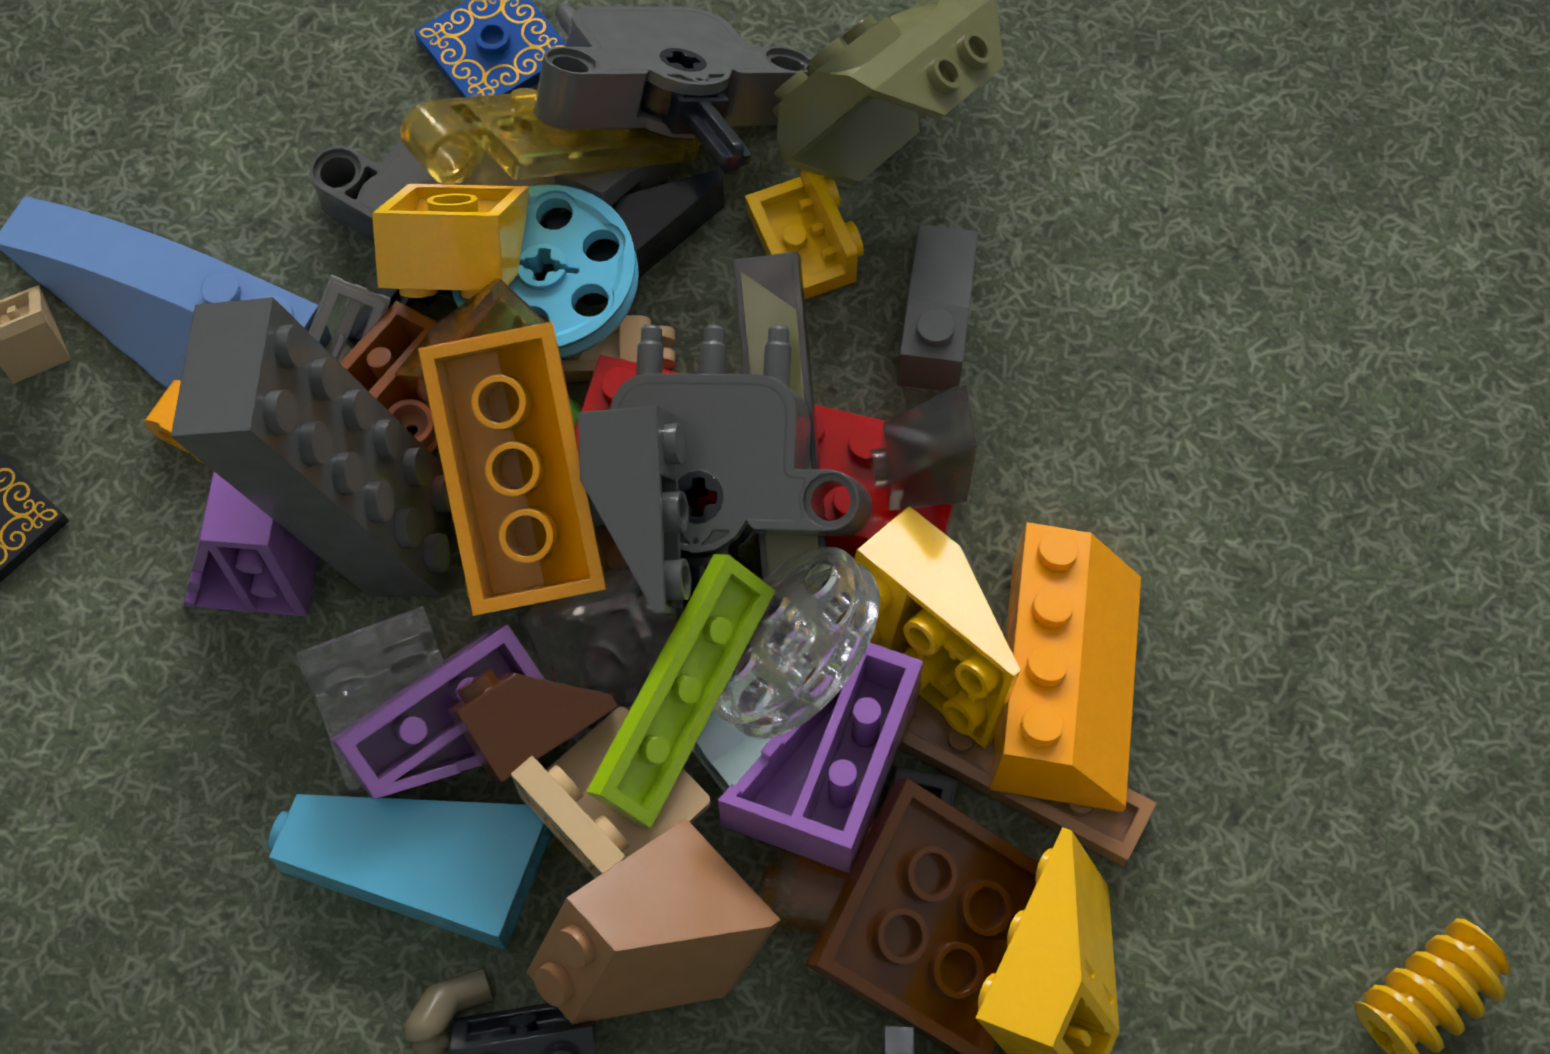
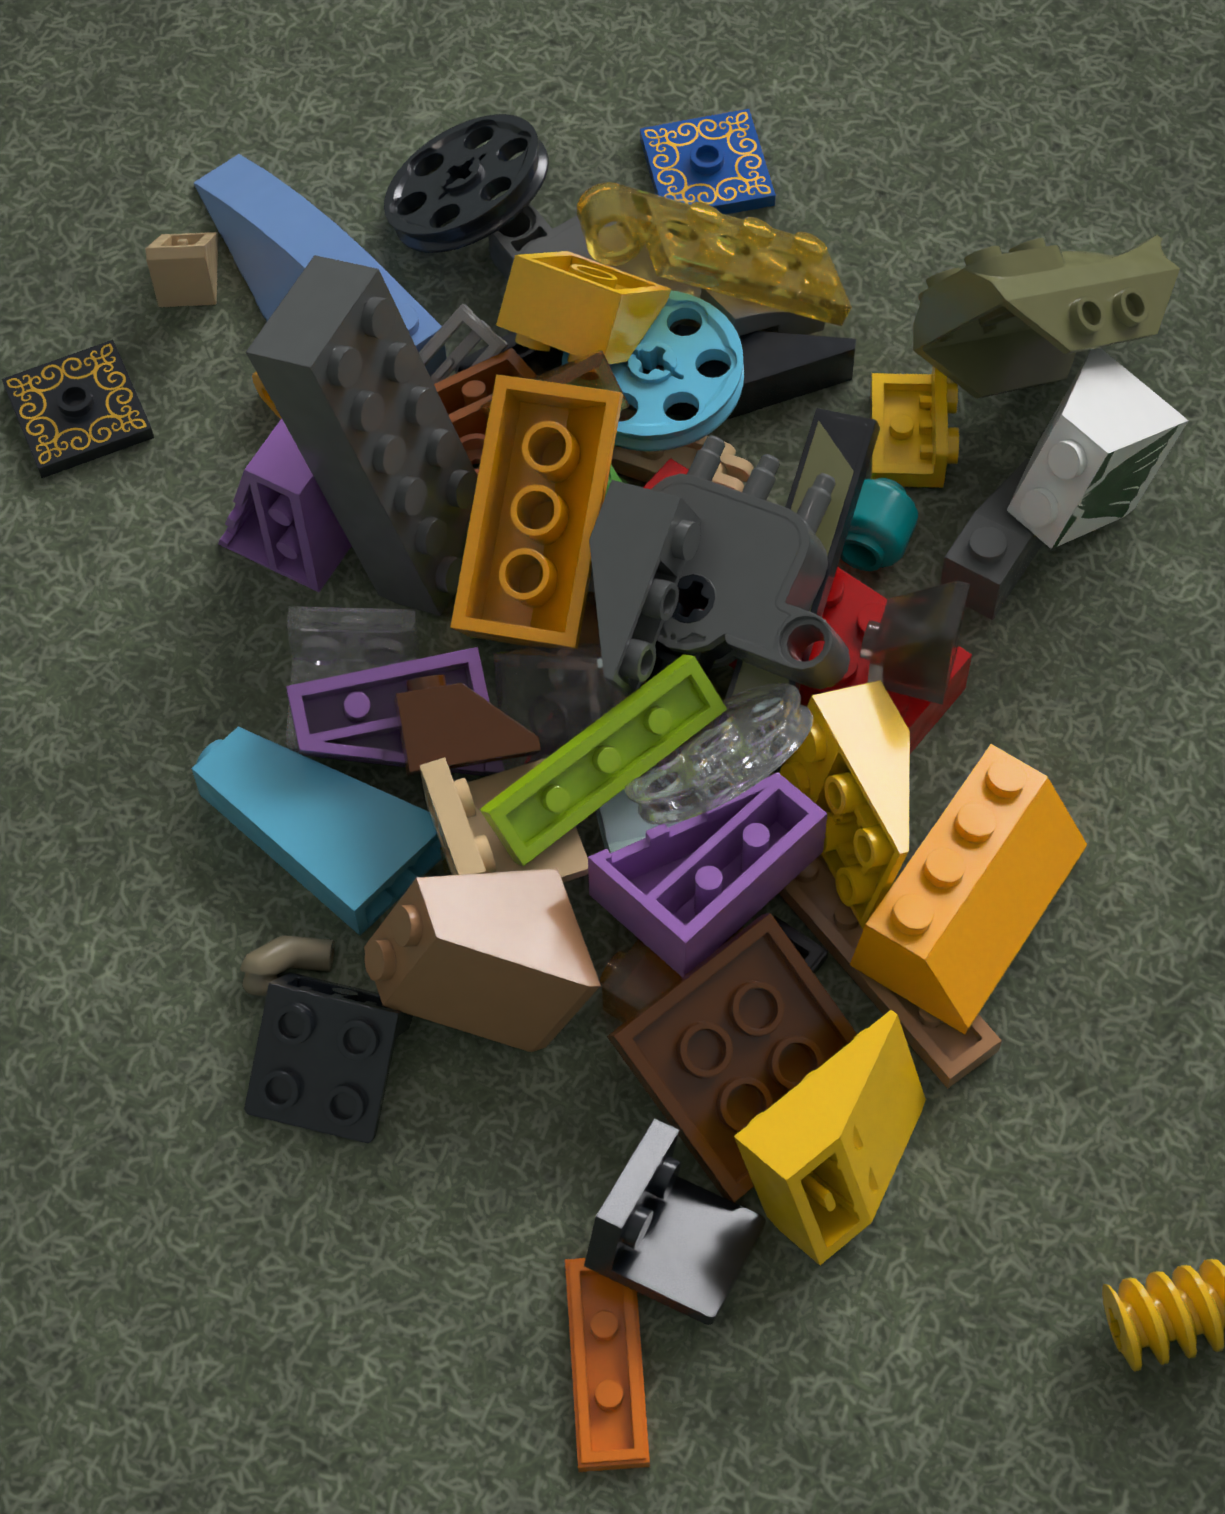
camera: 25 degrees right, 5 degrees down
(272, 148) = (466, 183): none -> black wedge
(662, 72) = (835, 232): dark grey piece -> none
(829, 342) = (880, 526): none -> teal head
(986, 199) = (1095, 453): none -> white slope

